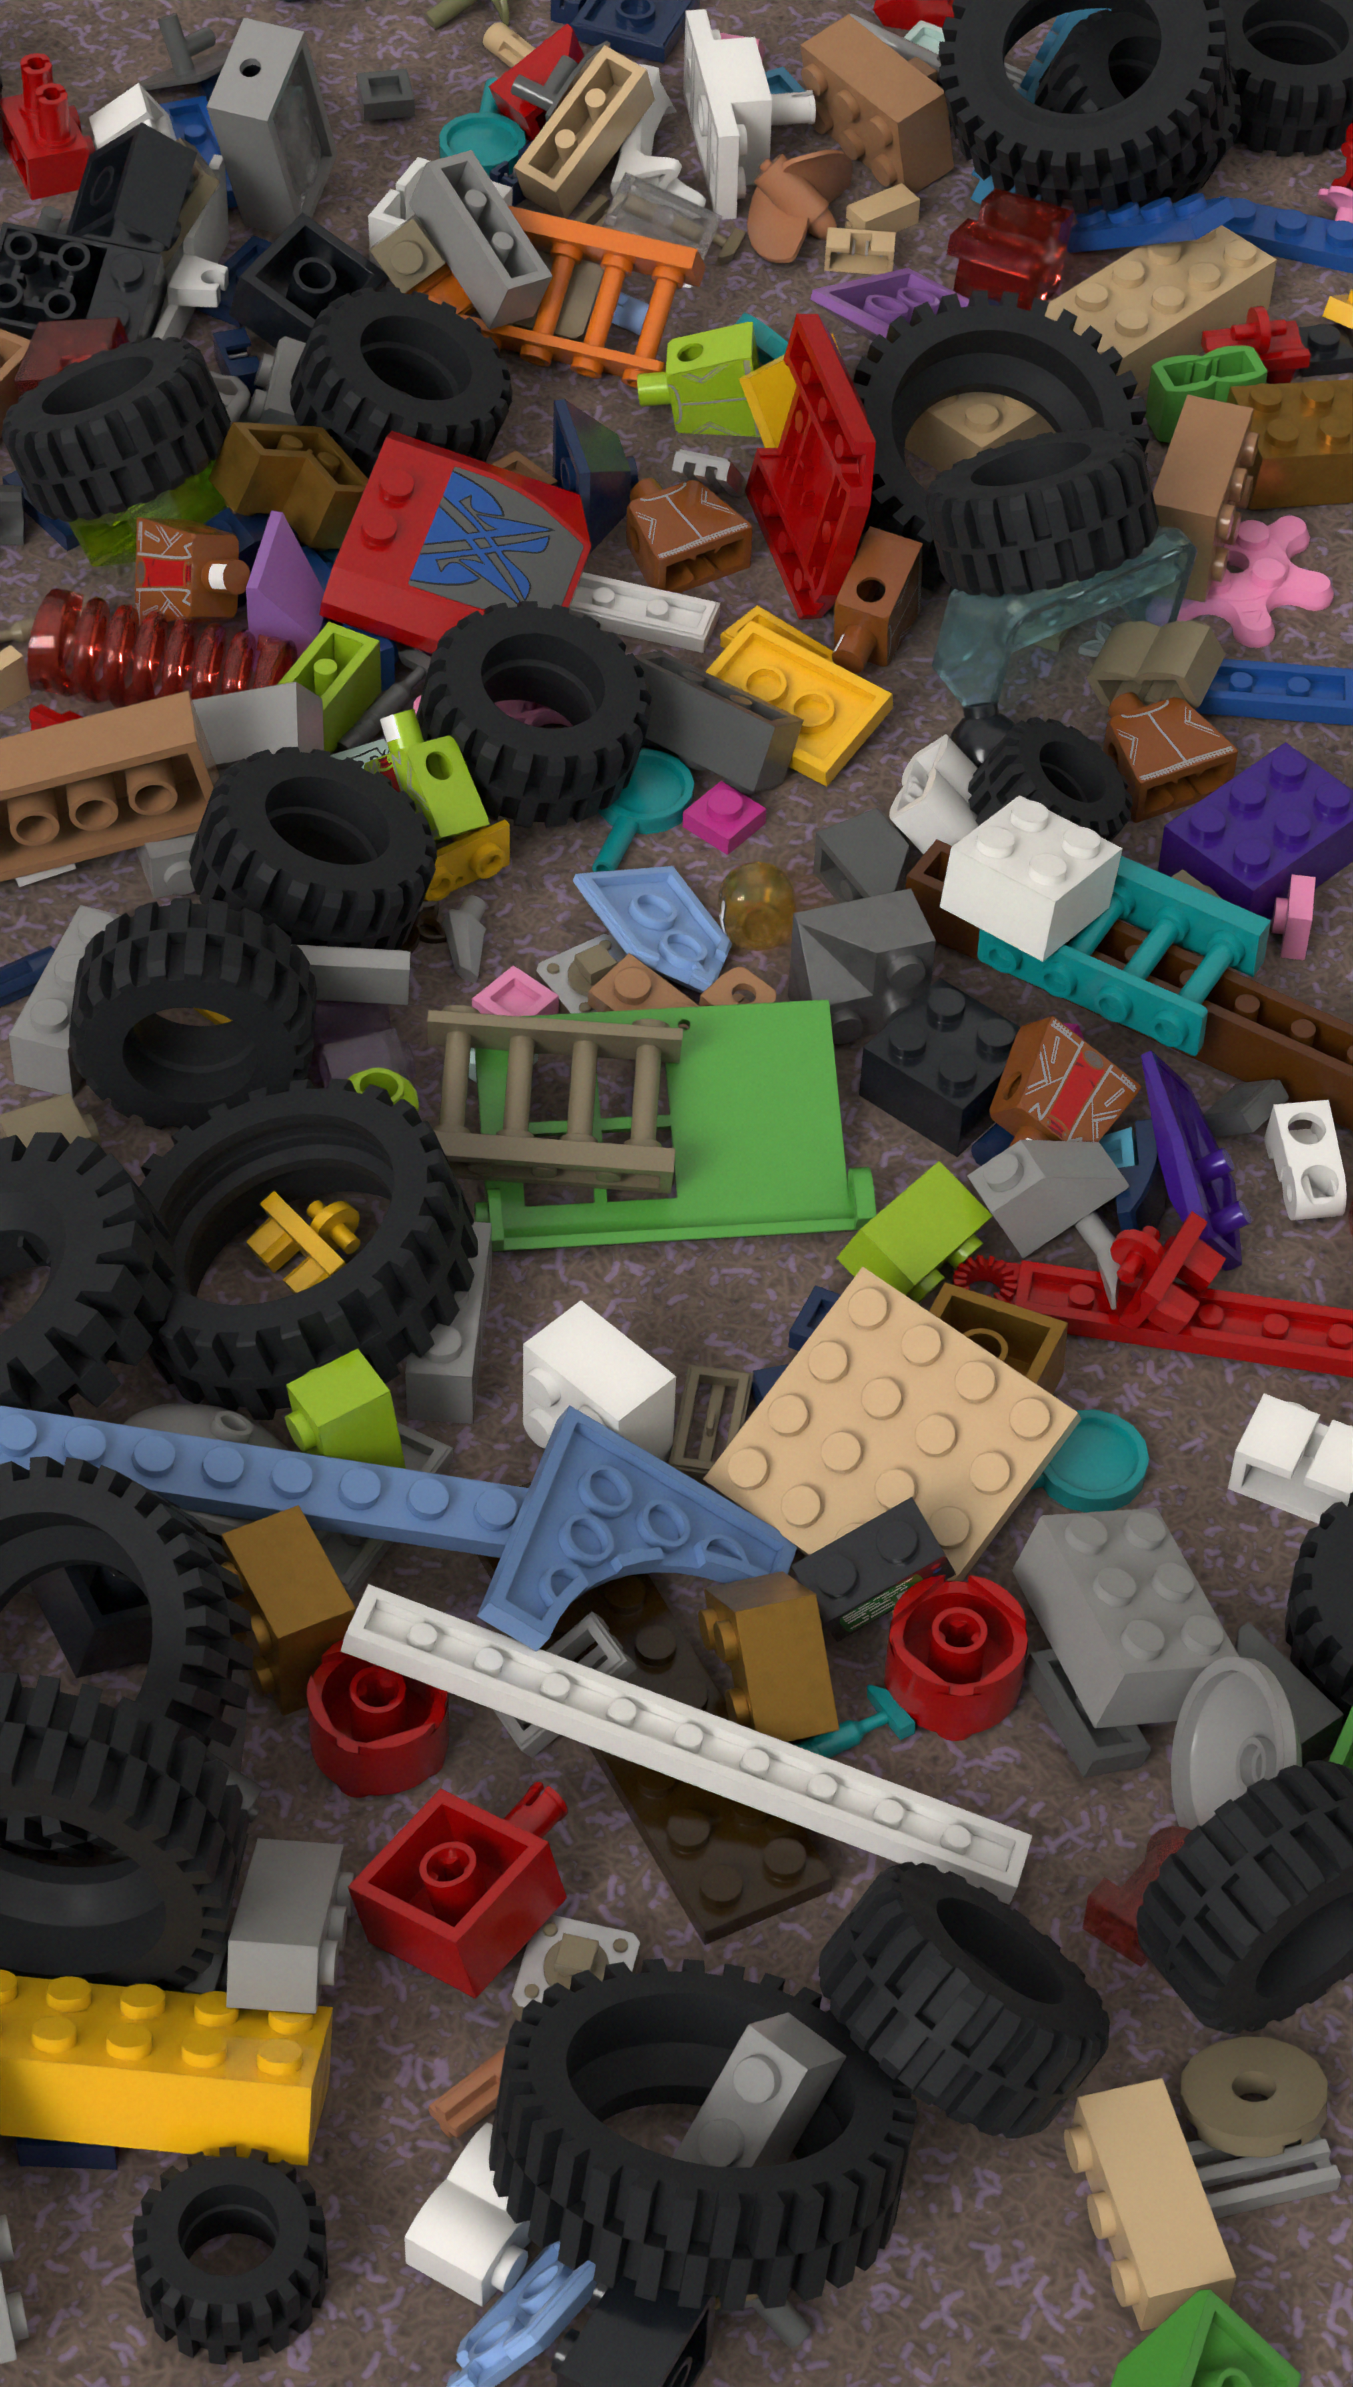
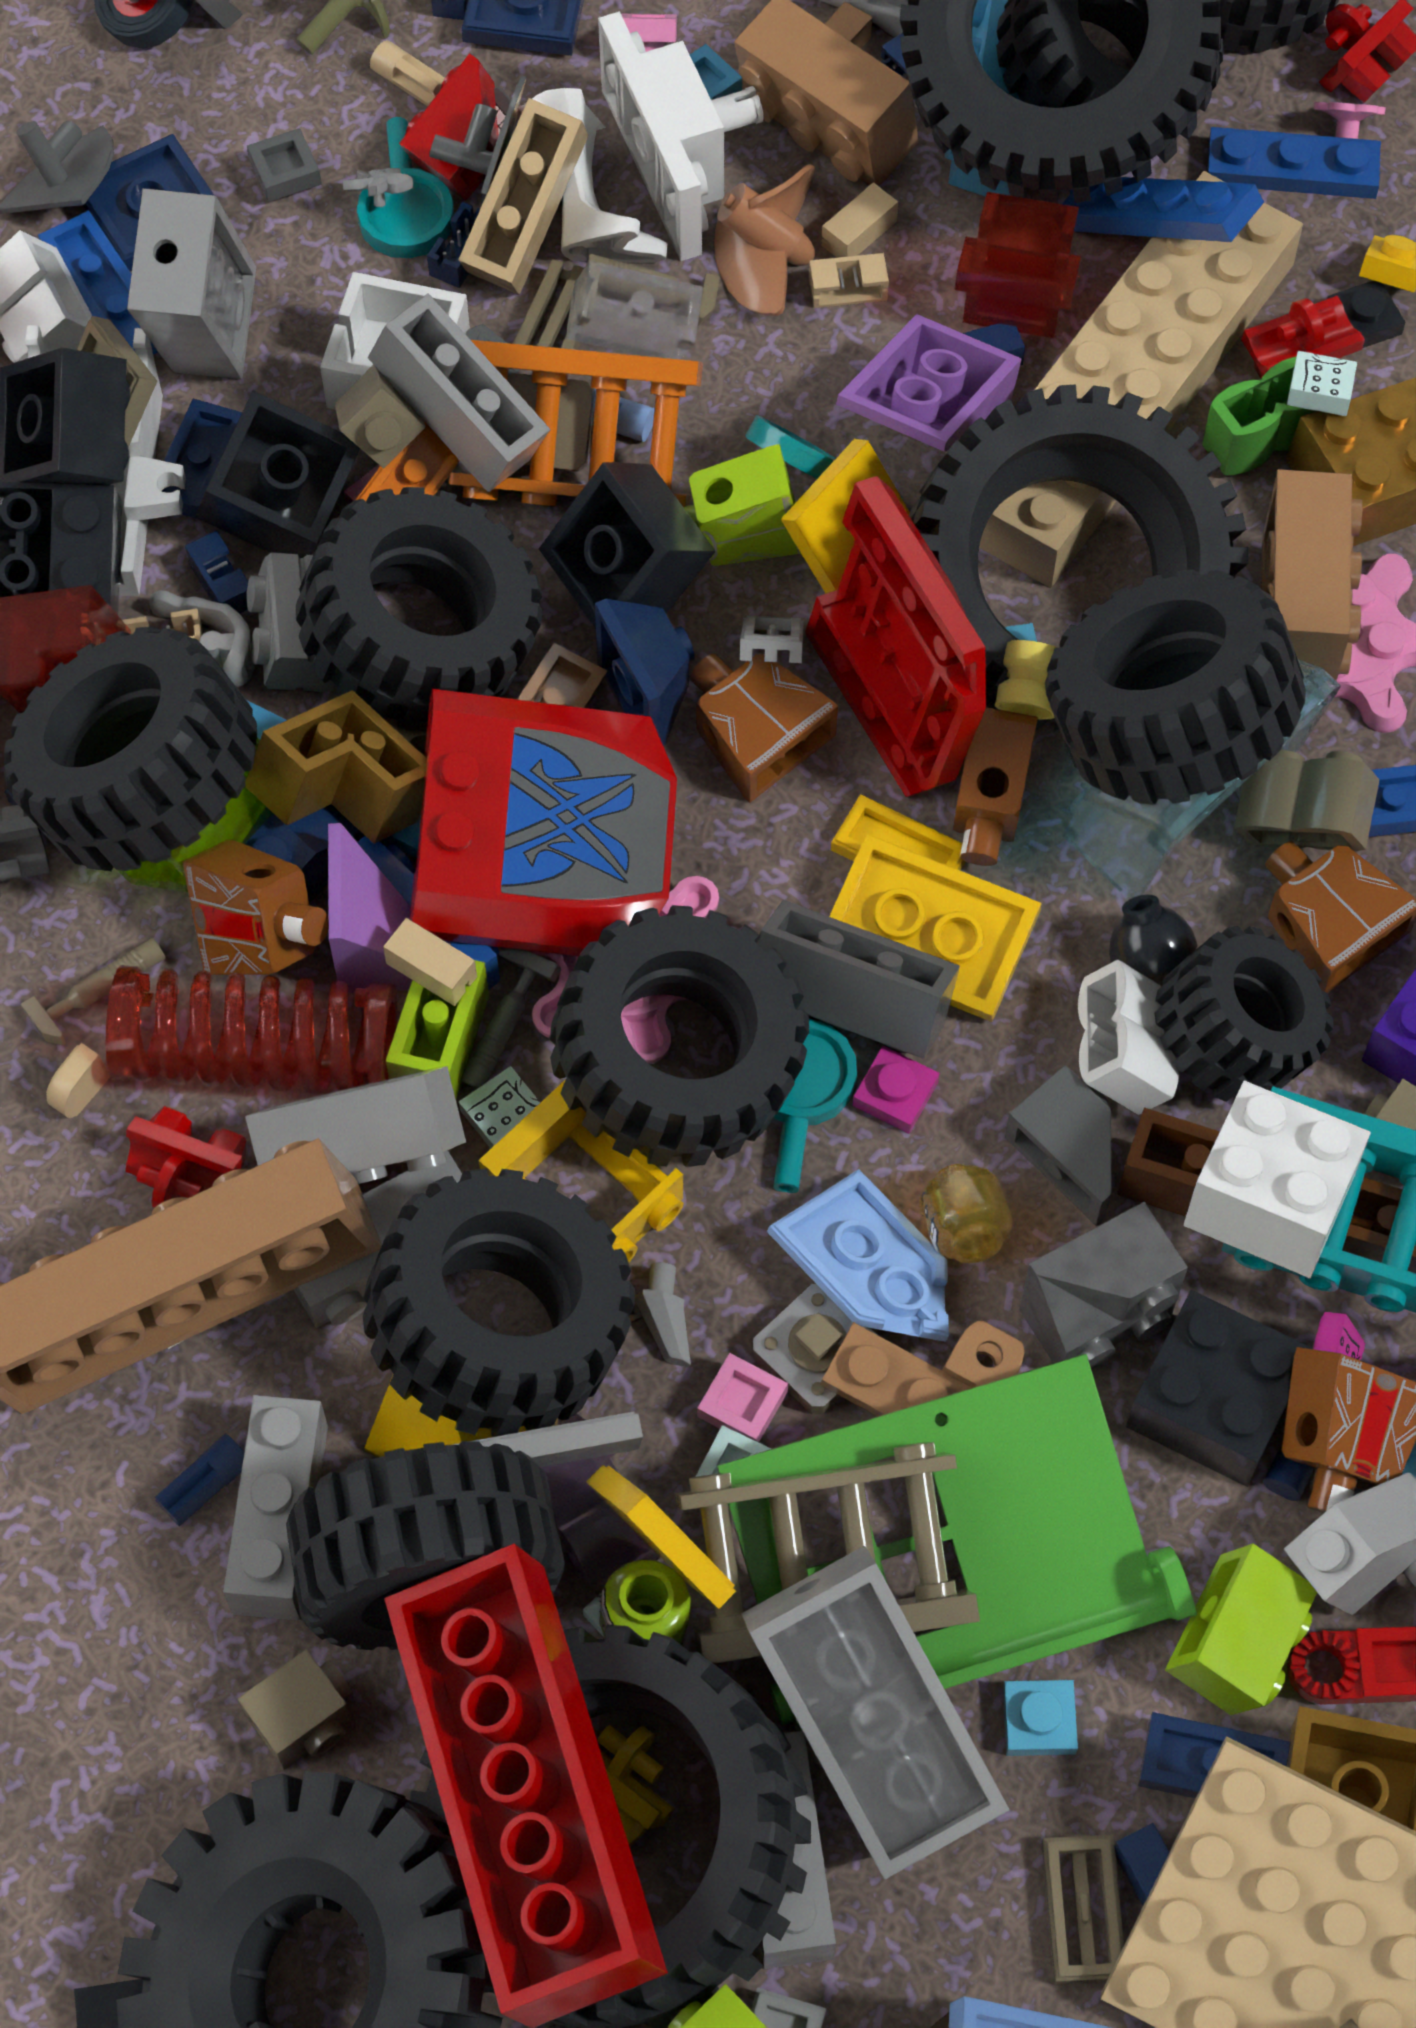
camera: 10 degrees left, 15 degrees up
(221, 1161) = (524, 1788): none -> red brick
(330, 624) = (430, 961): none -> tan piece
(403, 1037) = (662, 1535): none -> yellow tile
(431, 775) = (588, 1157): lime torso -> none
(462, 112) = (379, 182): none -> light grey plant
(556, 1199) = (874, 1712): none -> clear brick
(600, 1373) = (970, 1933): white brick -> none
(603, 371) = (626, 541): none -> black brick
(646, 612) = (746, 826): white tile -> none
(713, 1281) = (1040, 1718): none -> medium azure plate
(909, 515) = (1027, 675): none -> light yellow wheel
(1253, 361) = (1322, 383): none -> light aqua tile

